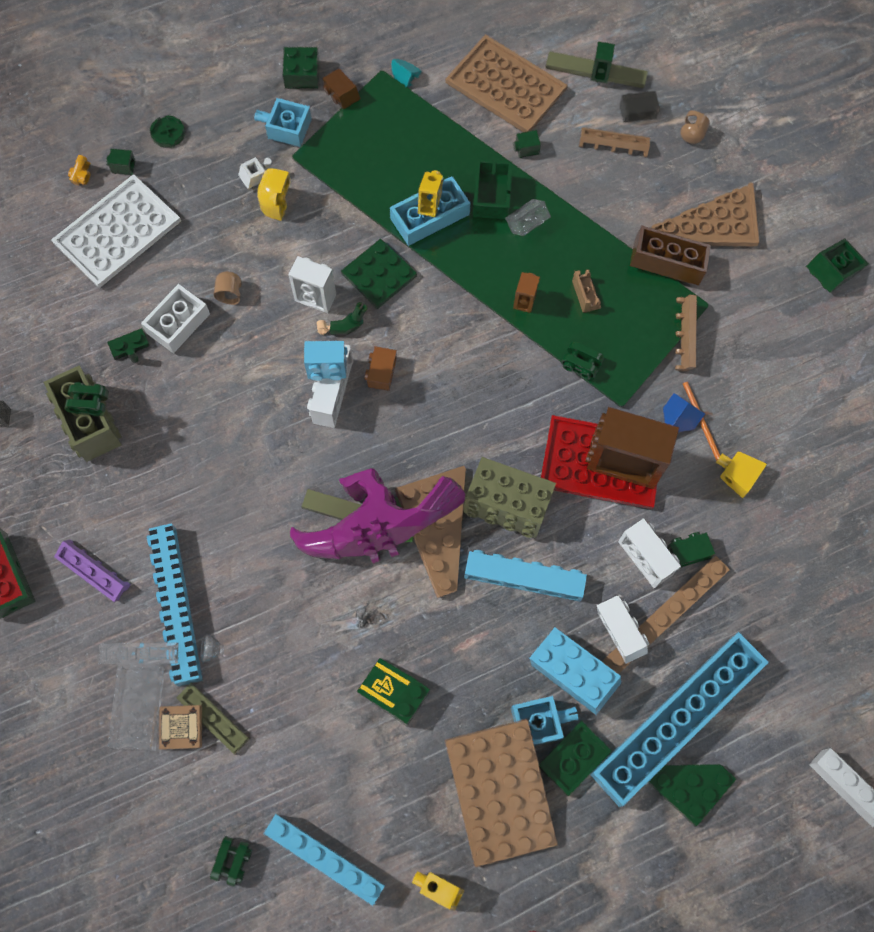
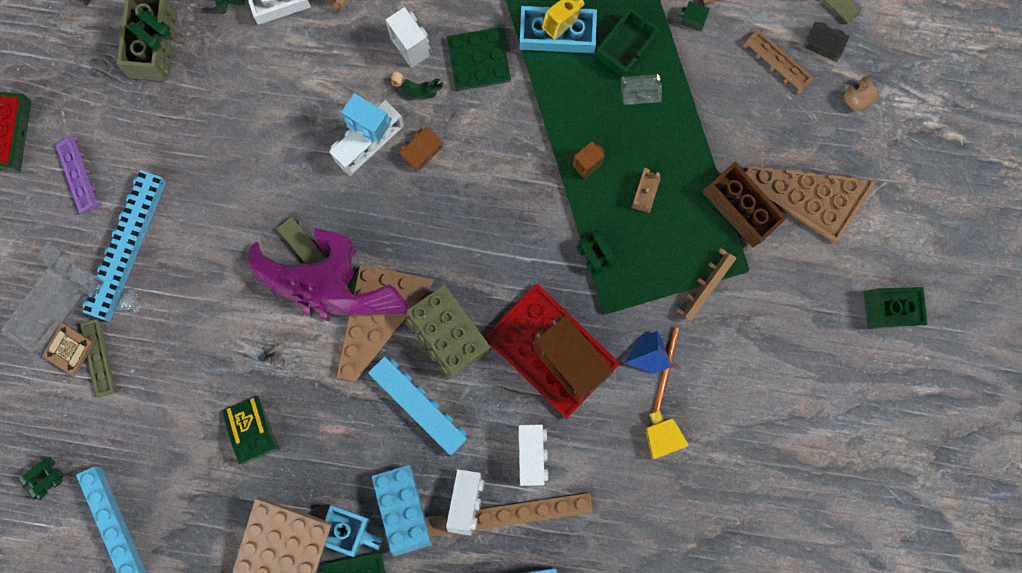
camera: 35 degrees right, 10 degrees up
(692, 549) = (571, 474): dark green brick -> none

